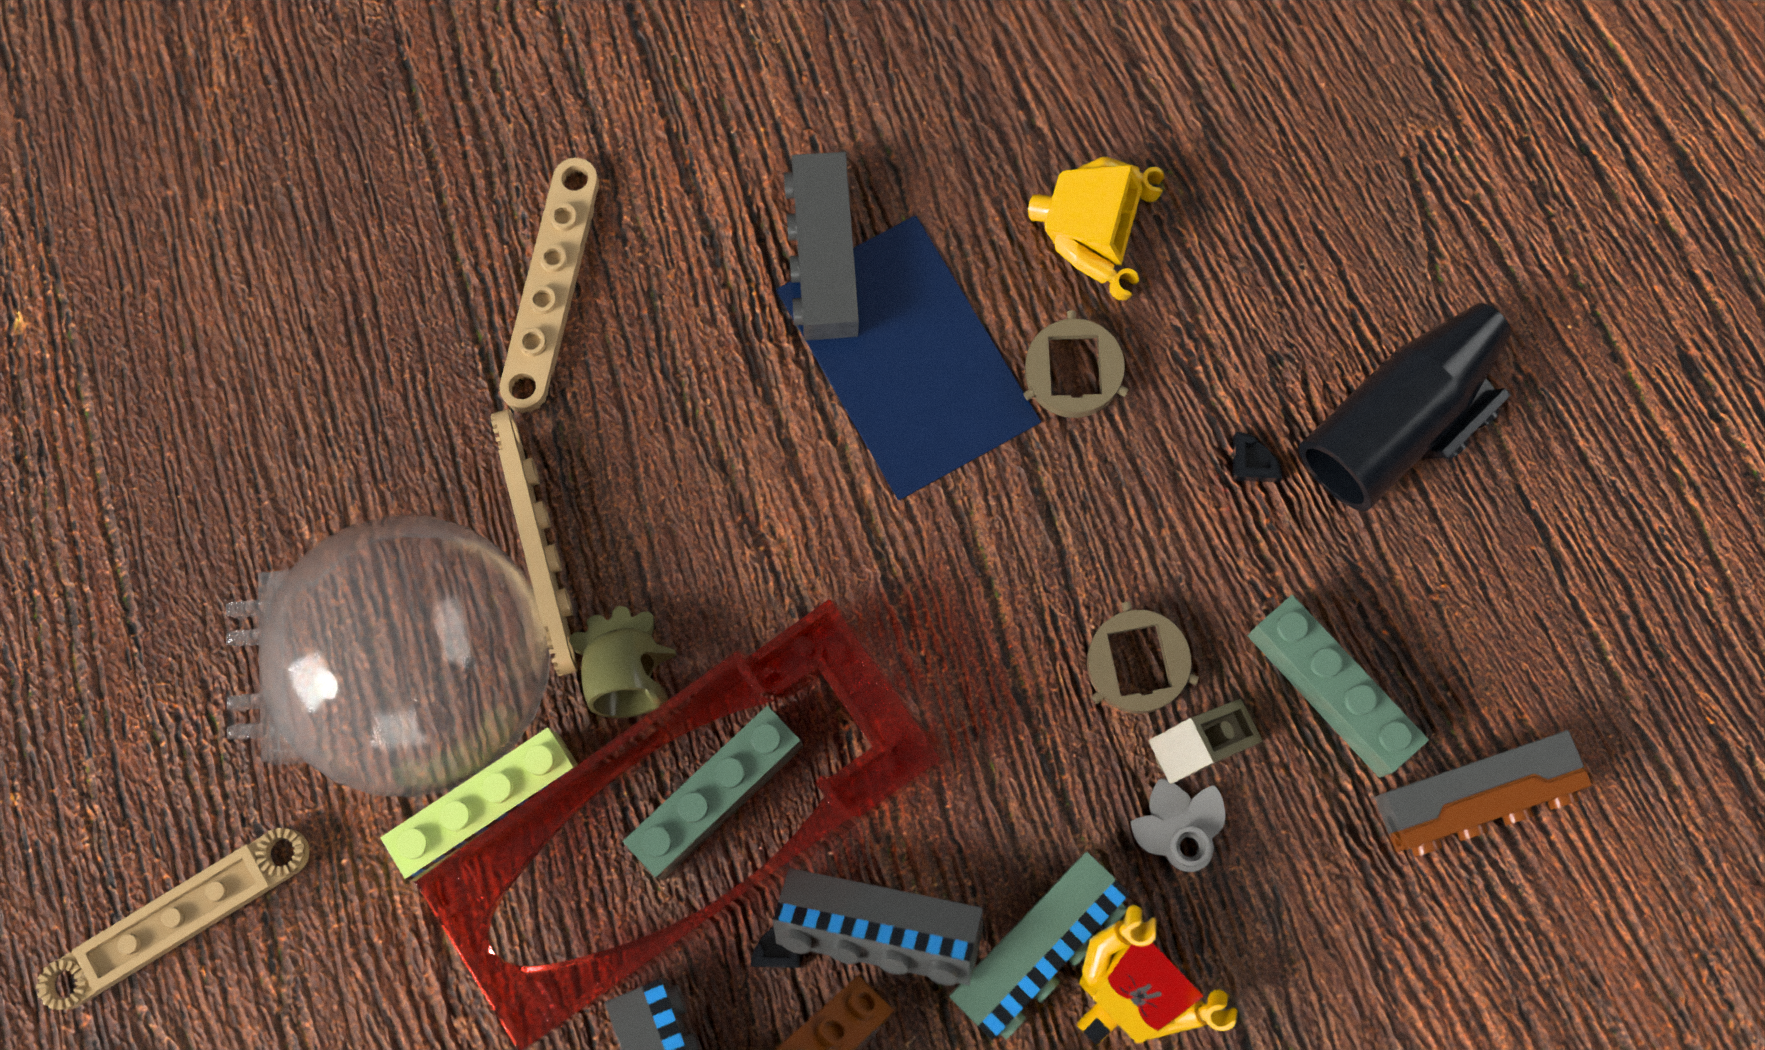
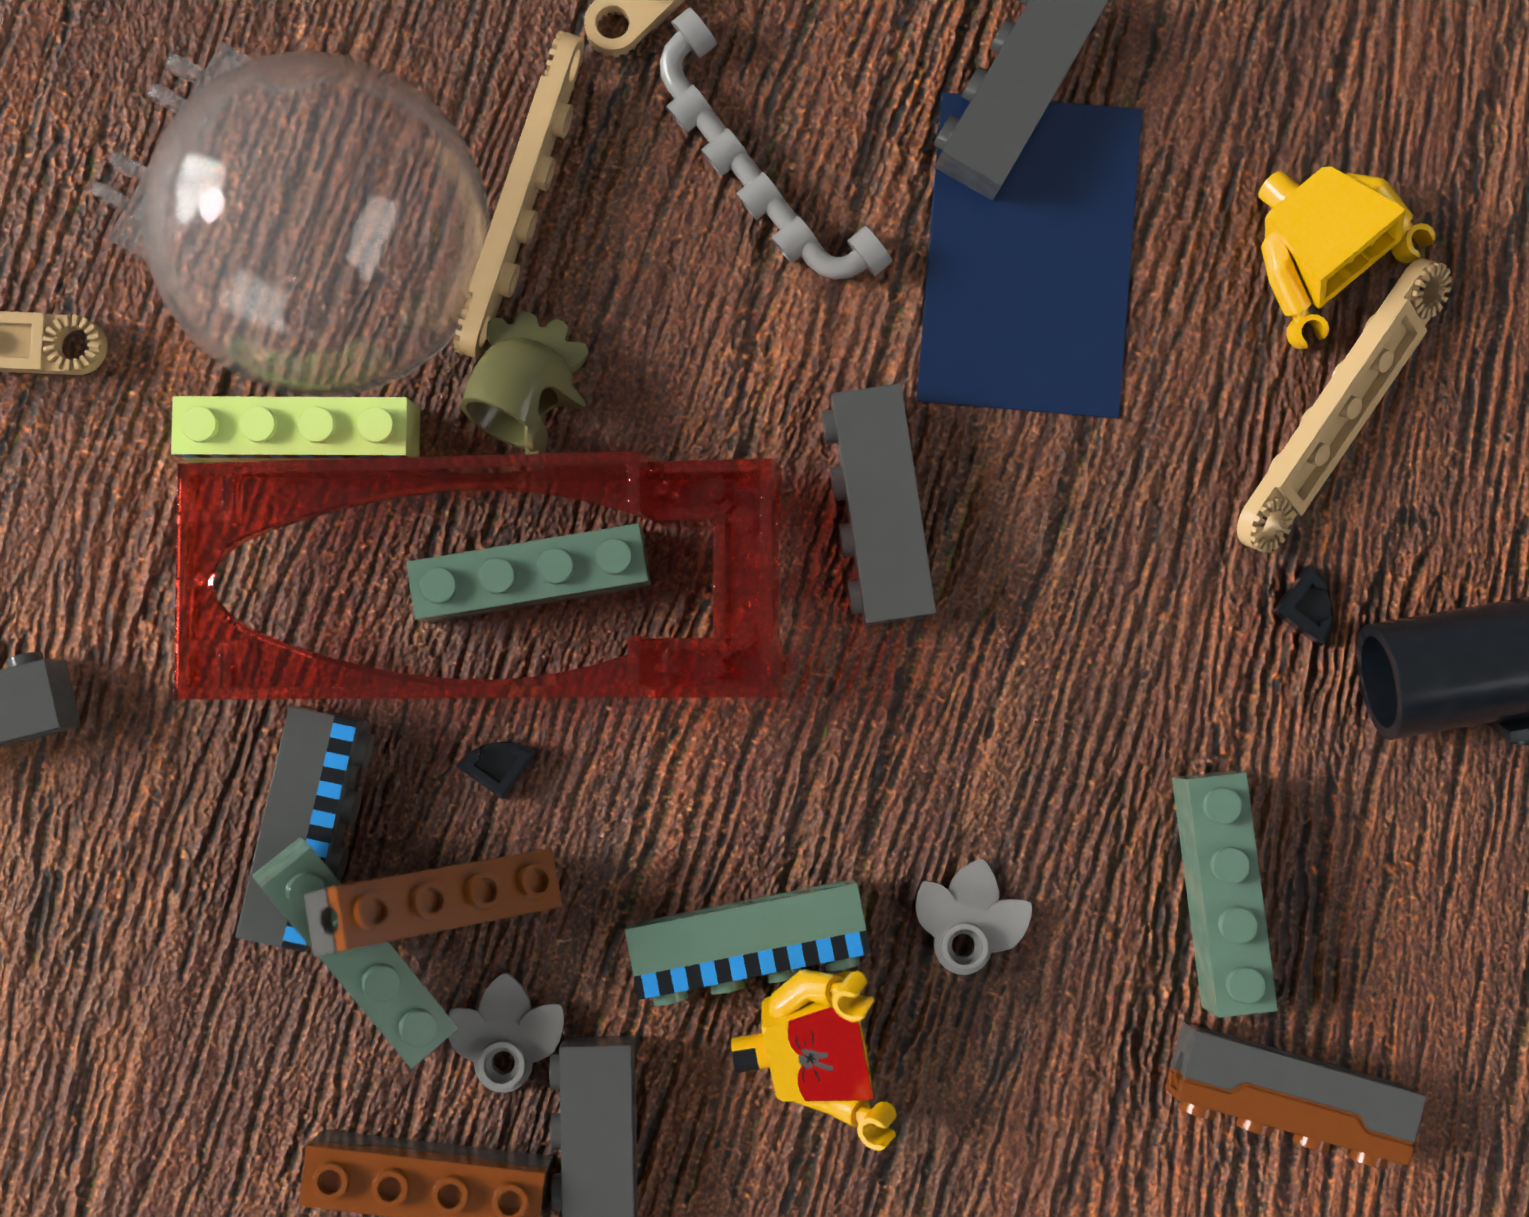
camera: 30 degrees right, 10 degrees up
(698, 432) = (728, 154): none -> light grey bar
(878, 927) = (601, 816): dark grey brick -> none
(923, 584) = (880, 504): none -> dark grey brick
(1110, 366) = (1229, 410): dark tan piece -> none
(1174, 652) = (1086, 745): dark tan piece -> none
(1182, 317) = (1344, 405): none -> tan plate
(1204, 740) = (1053, 855): dark tan slope -> none

